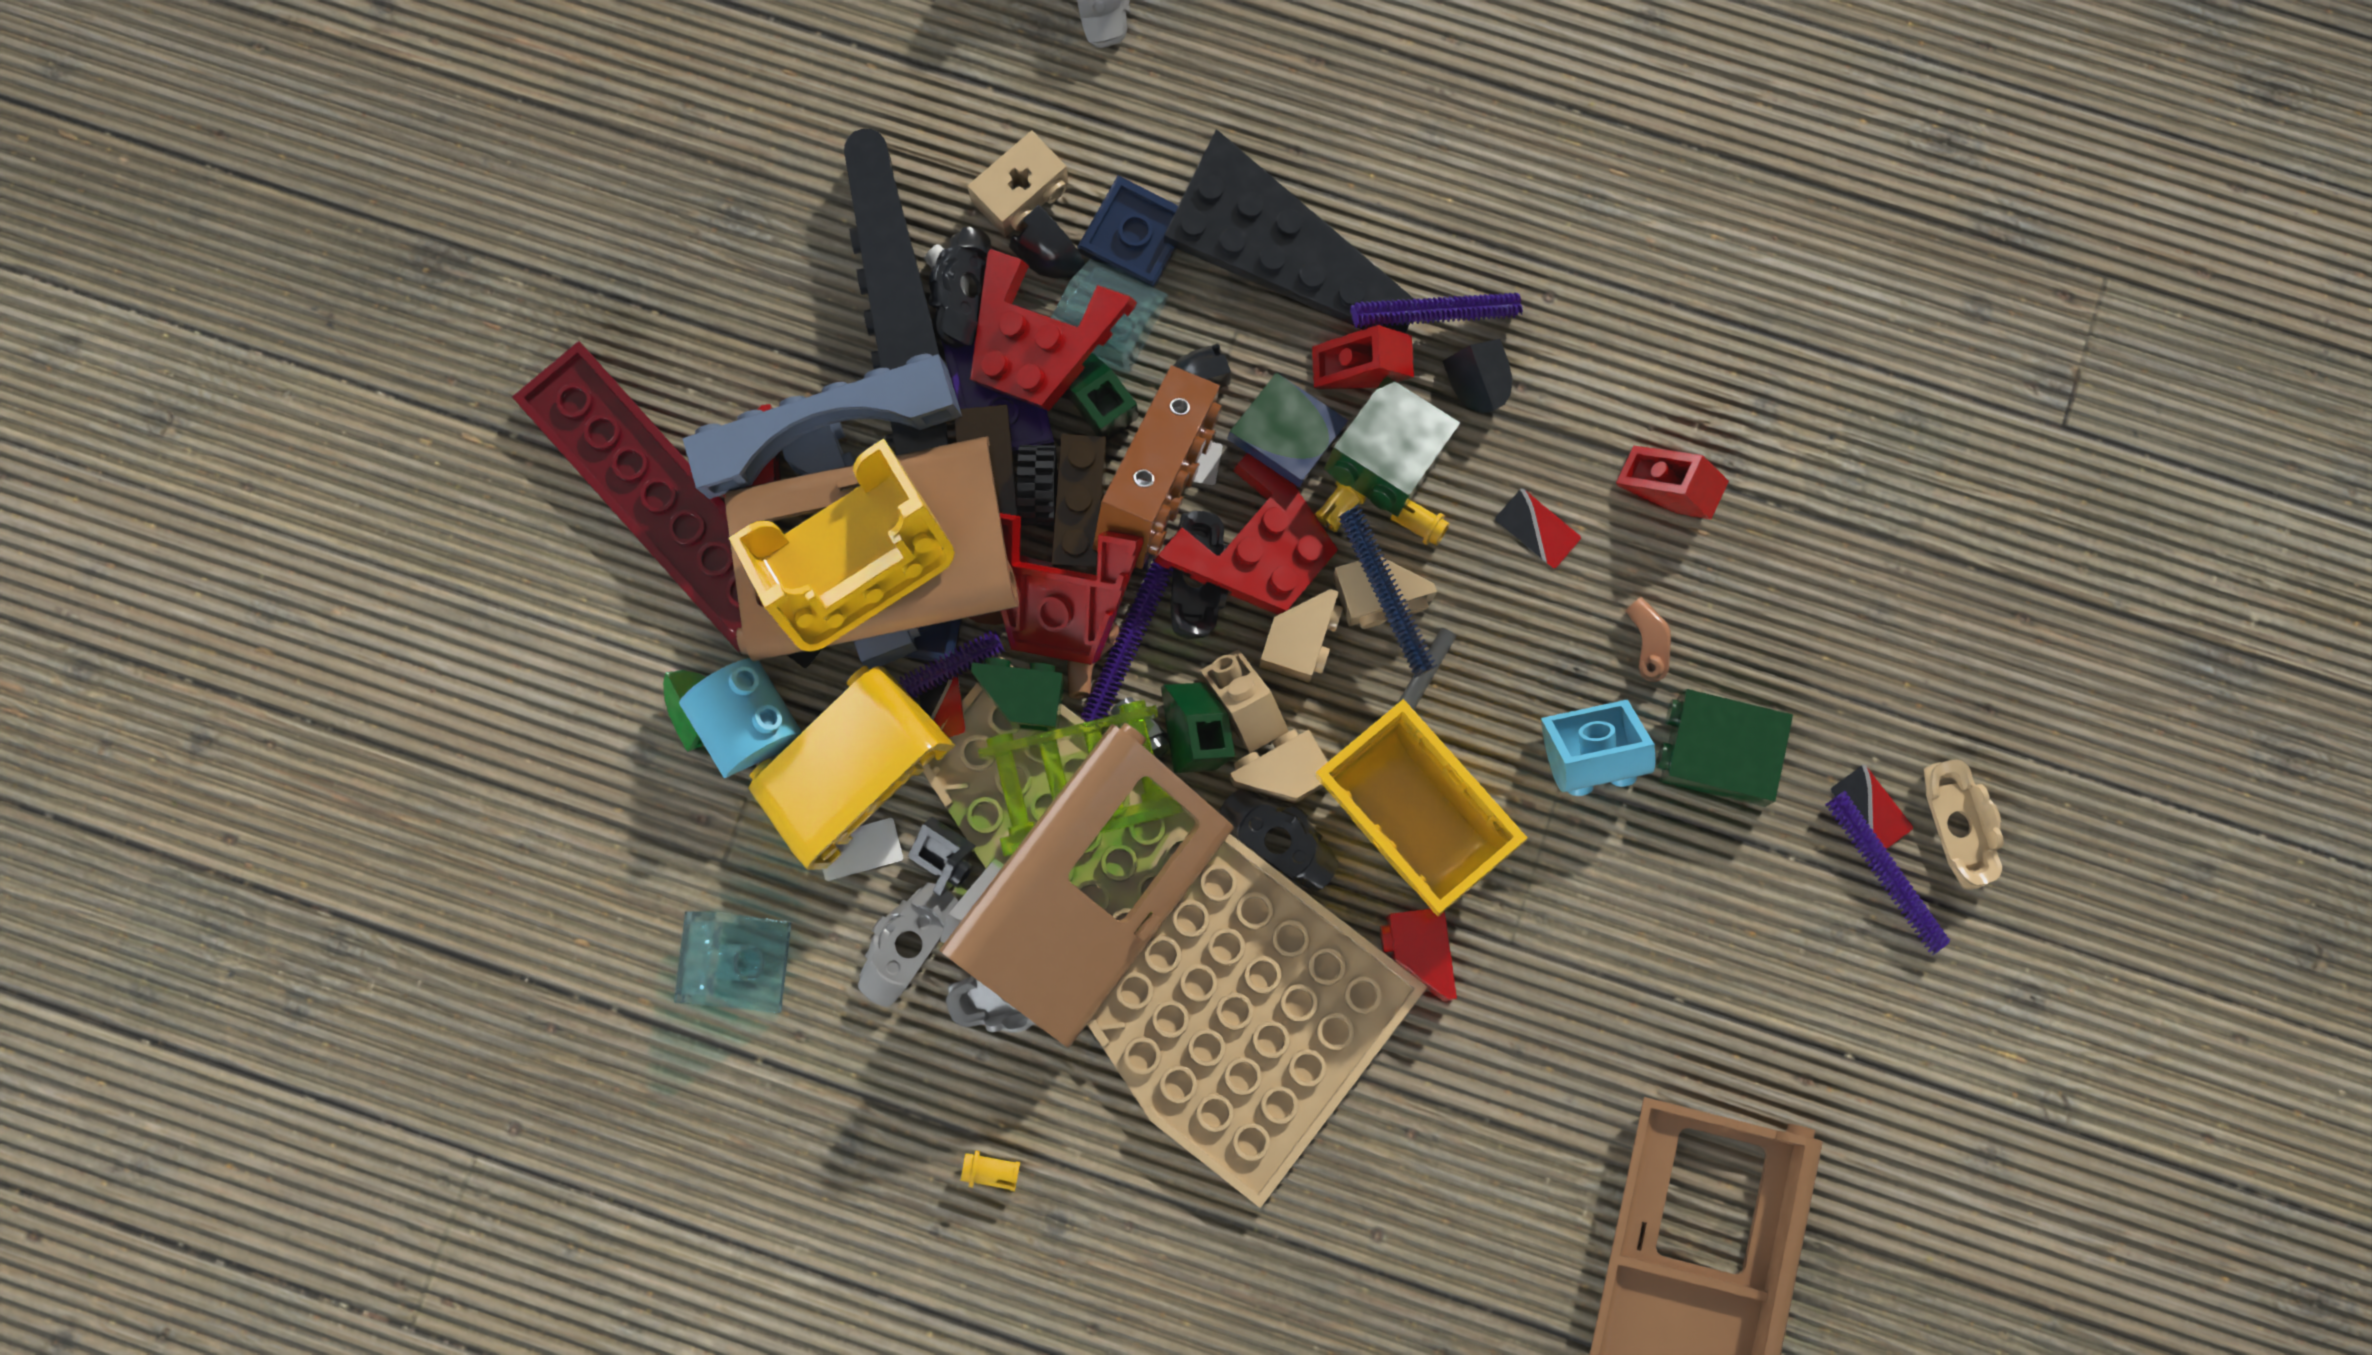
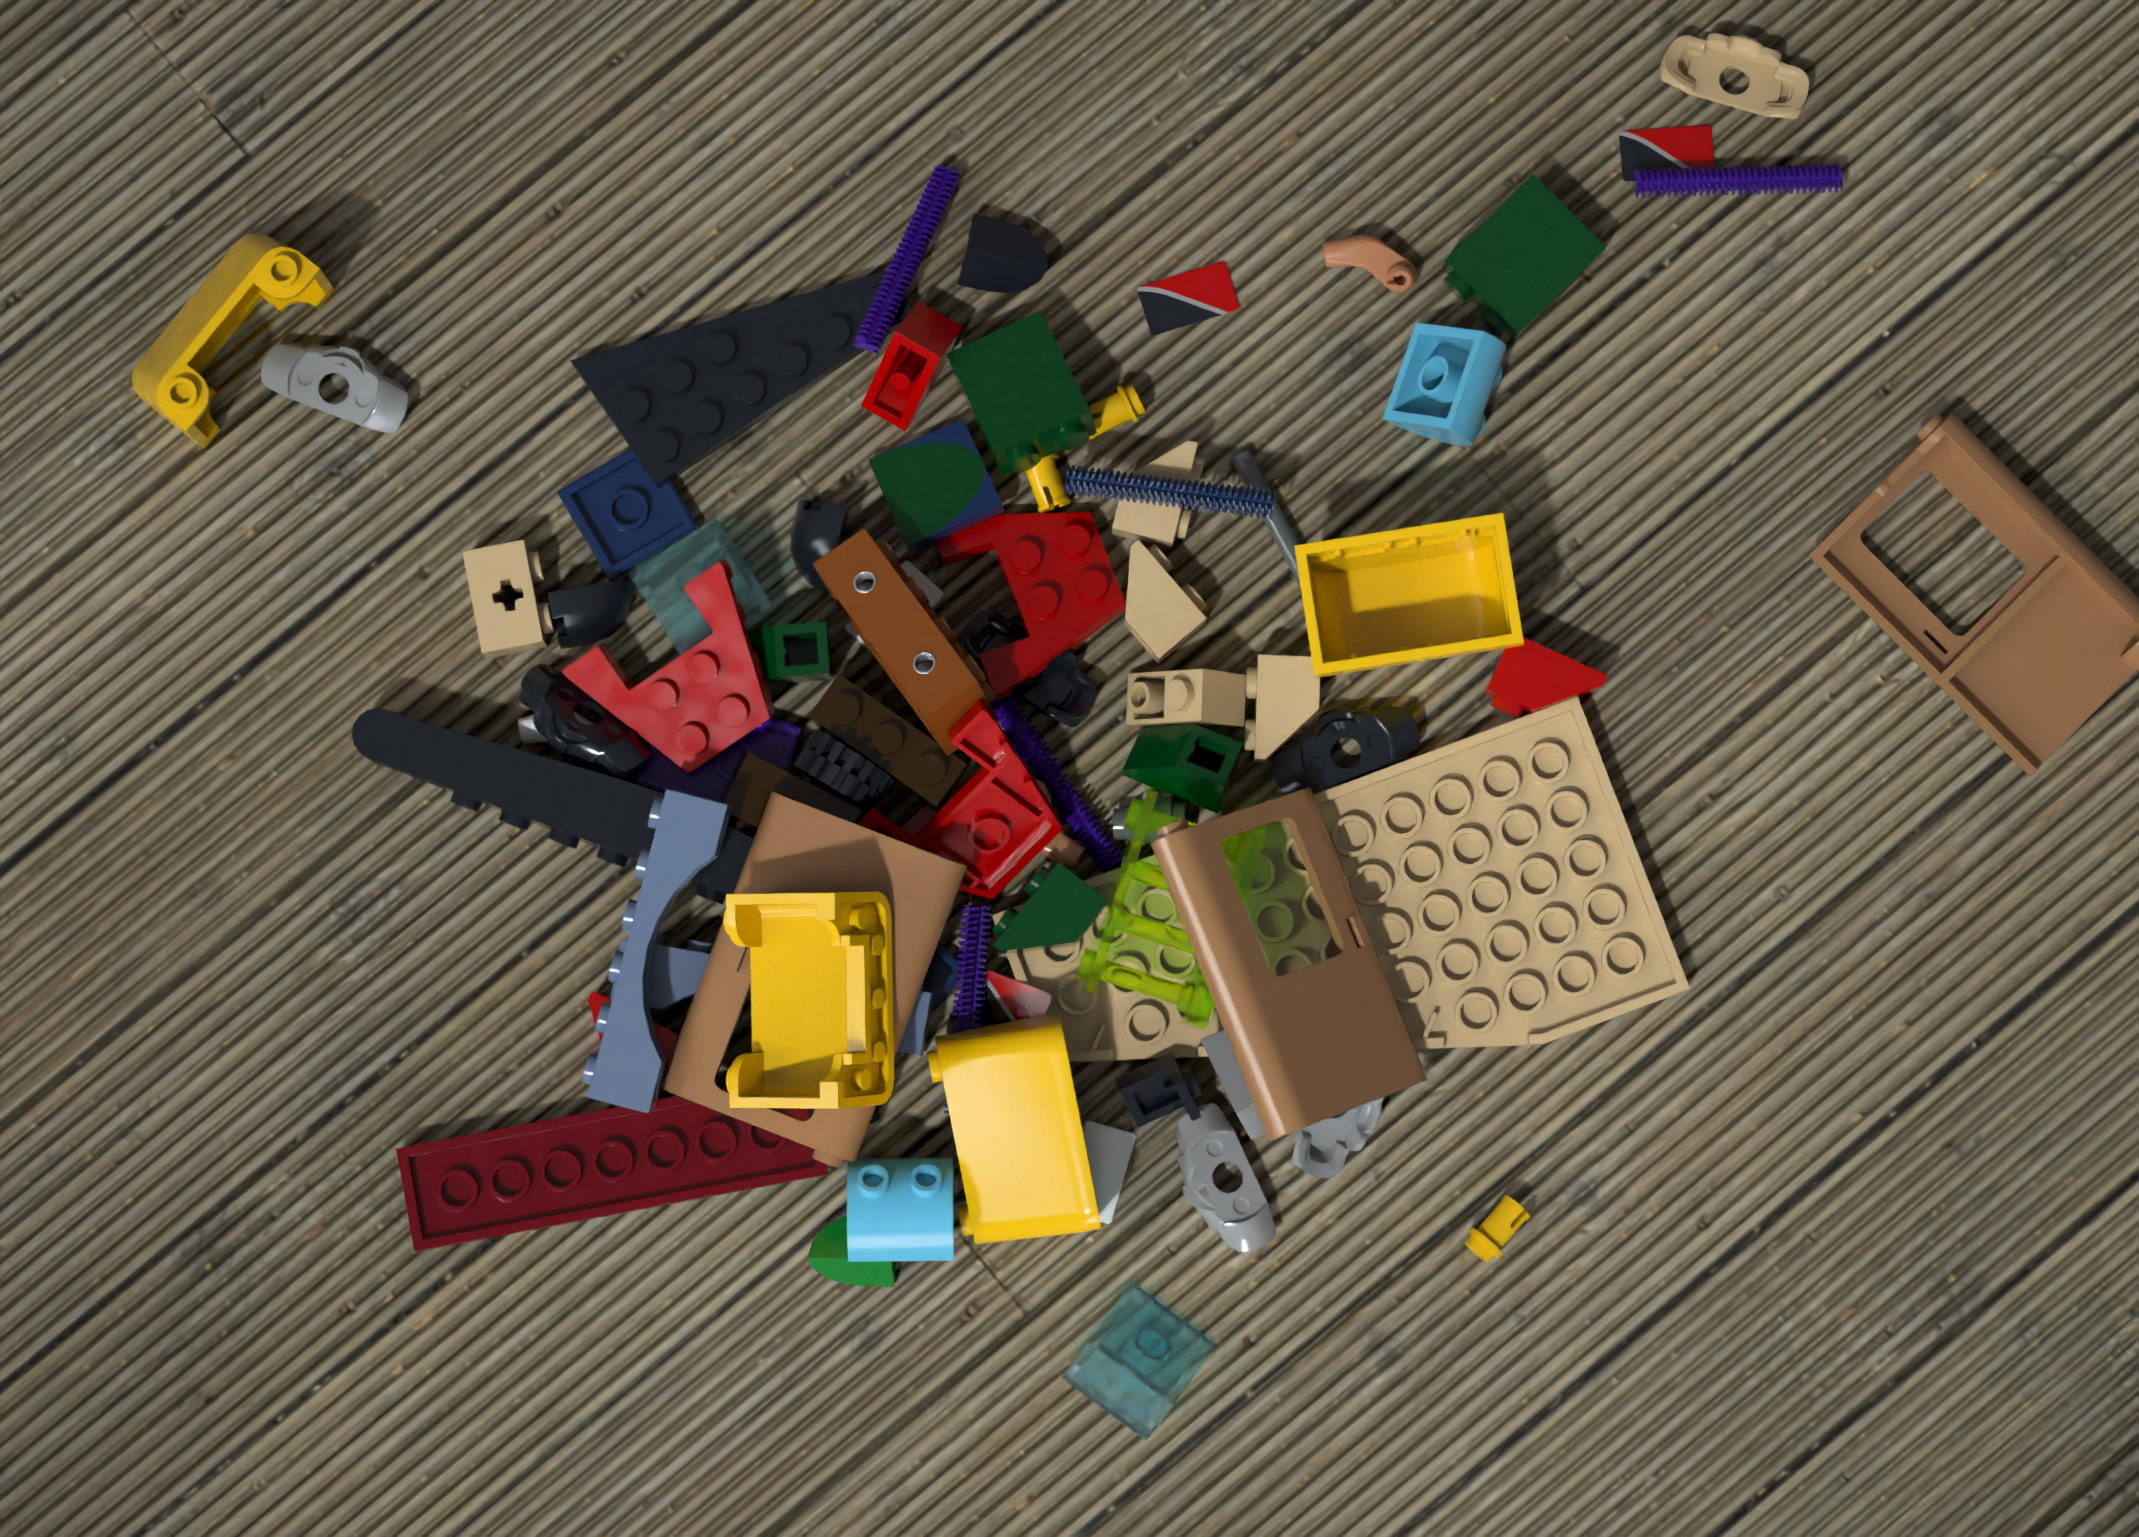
camera: 60 degrees left, 5 degrees up
(1674, 480) = (1226, 136): red slope -> none

